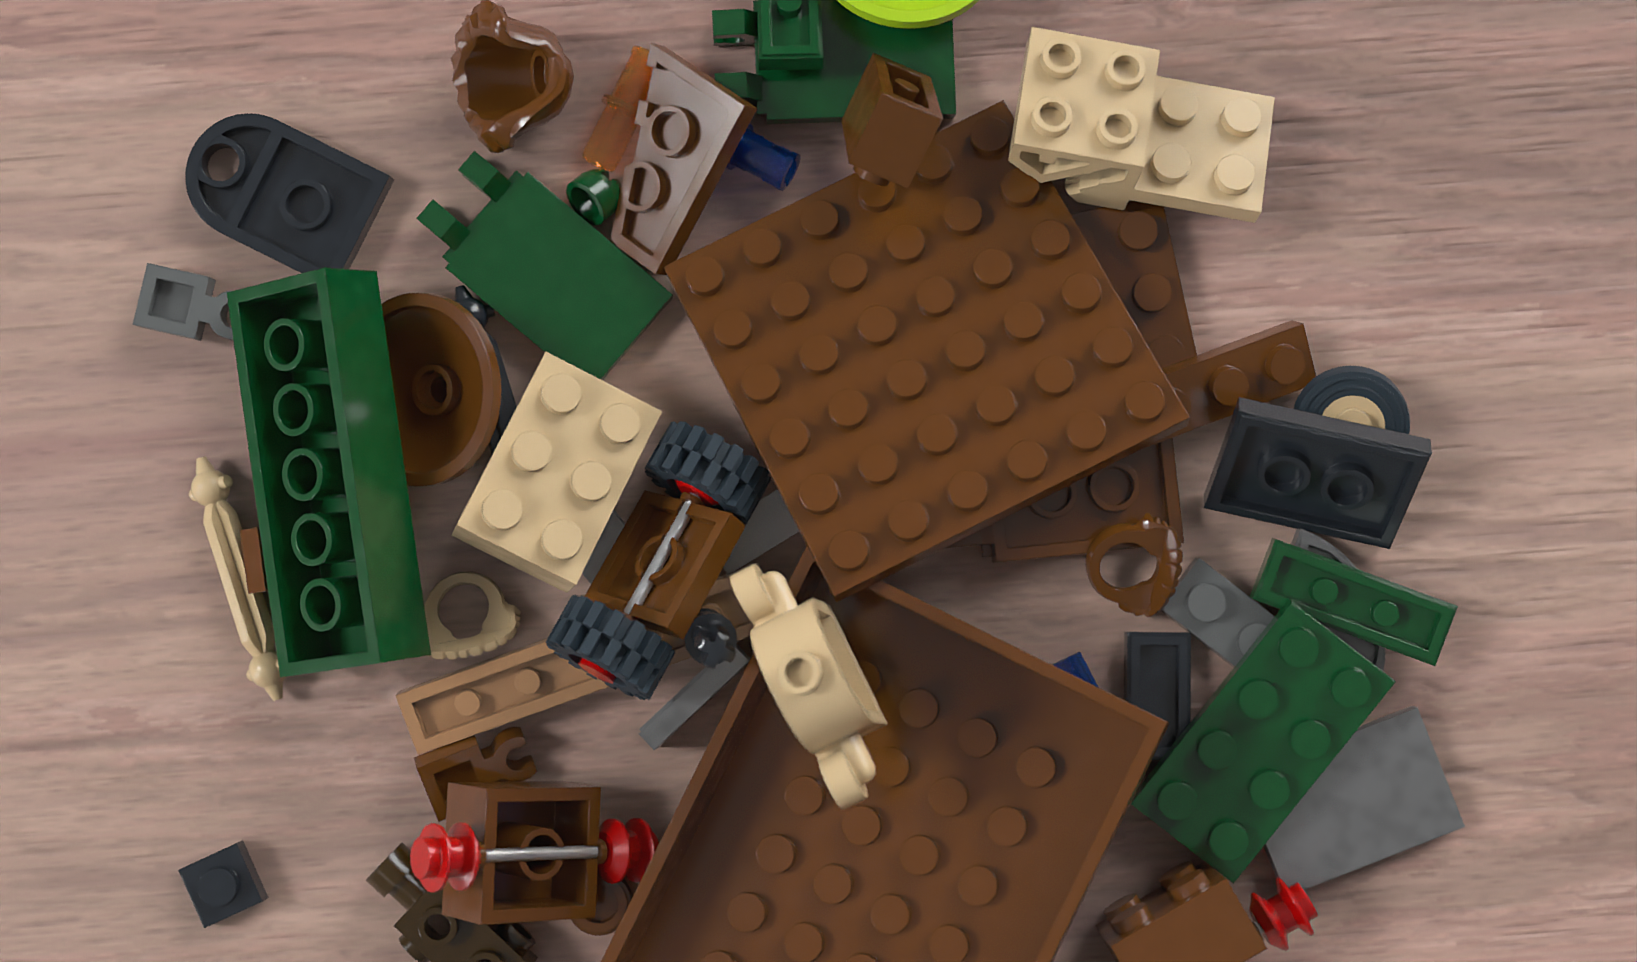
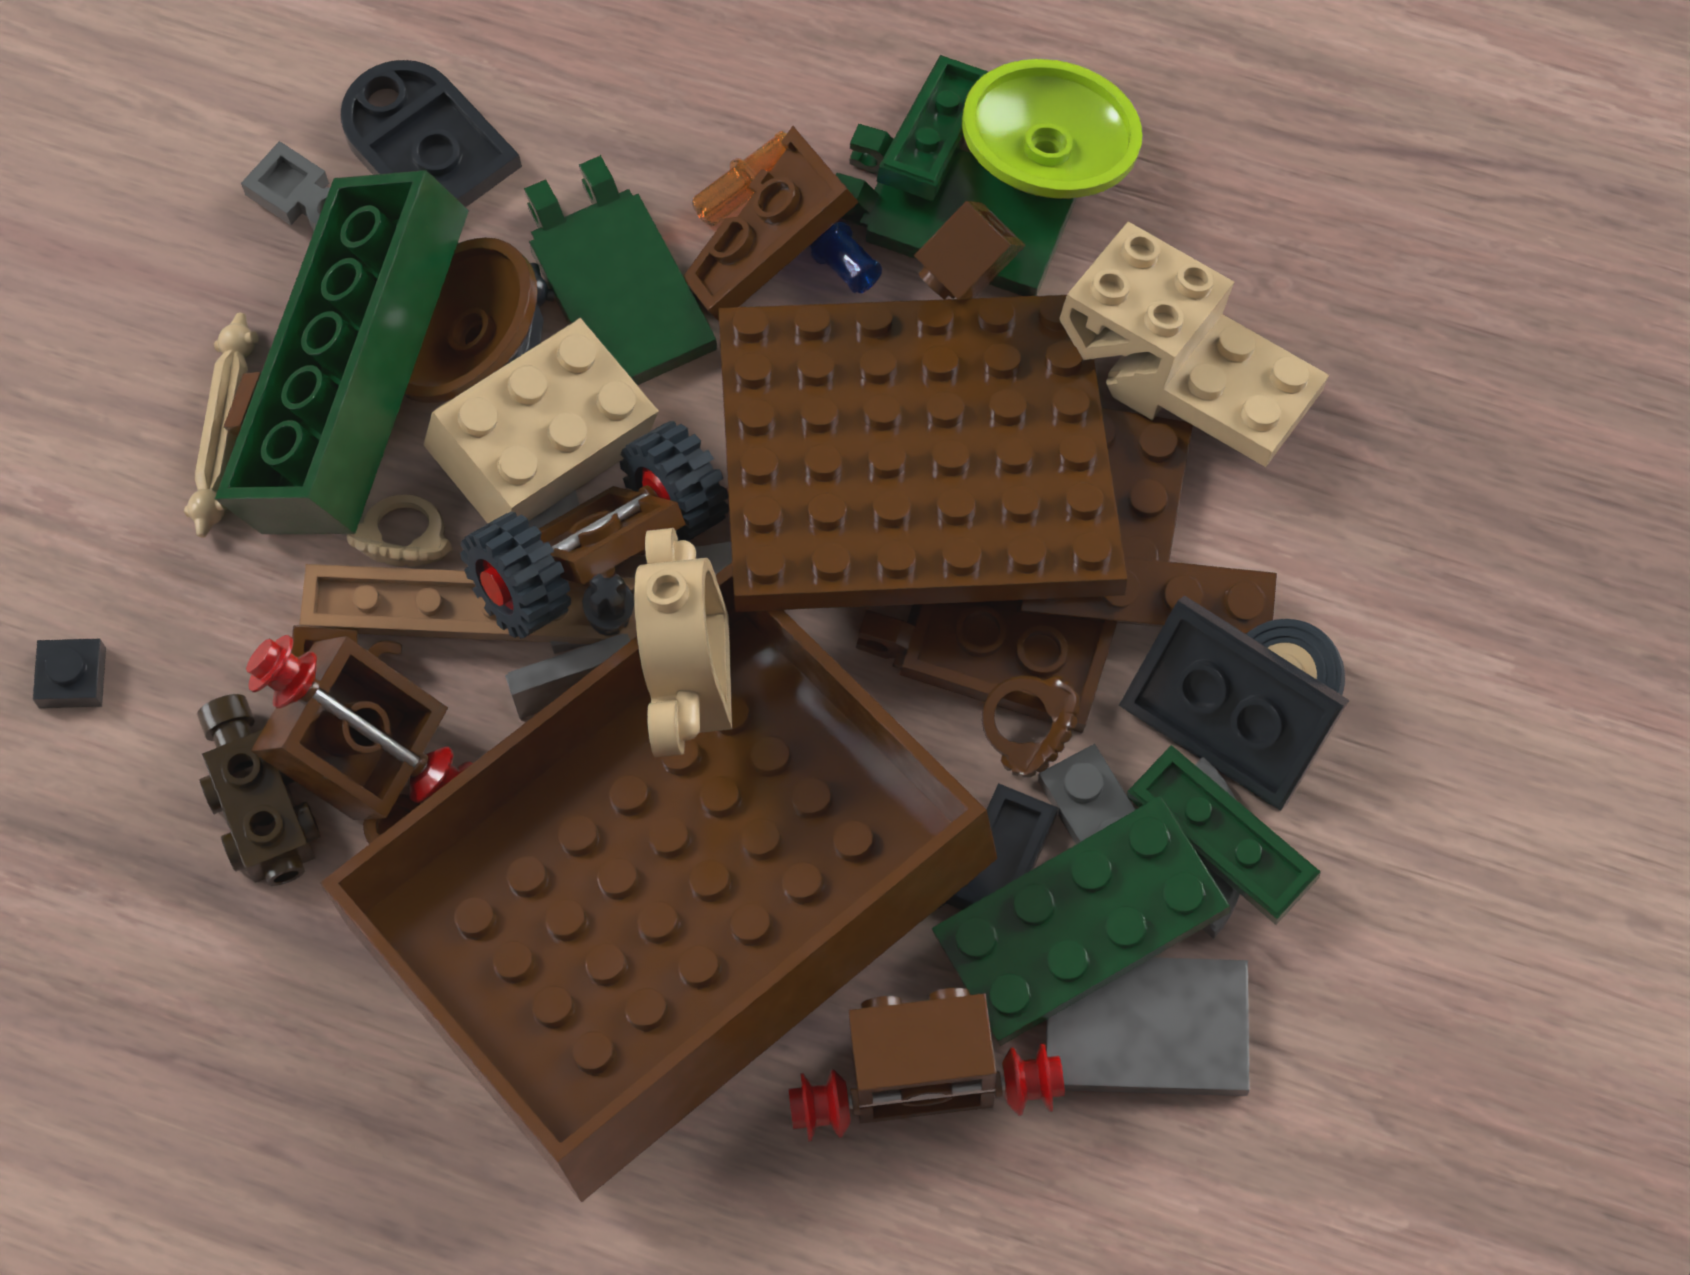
camera: 25 degrees right, 20 degrees down
(508, 75) = (659, 108): reddish brown hair -> none
(594, 195) = (686, 234): dark green hinge -> none

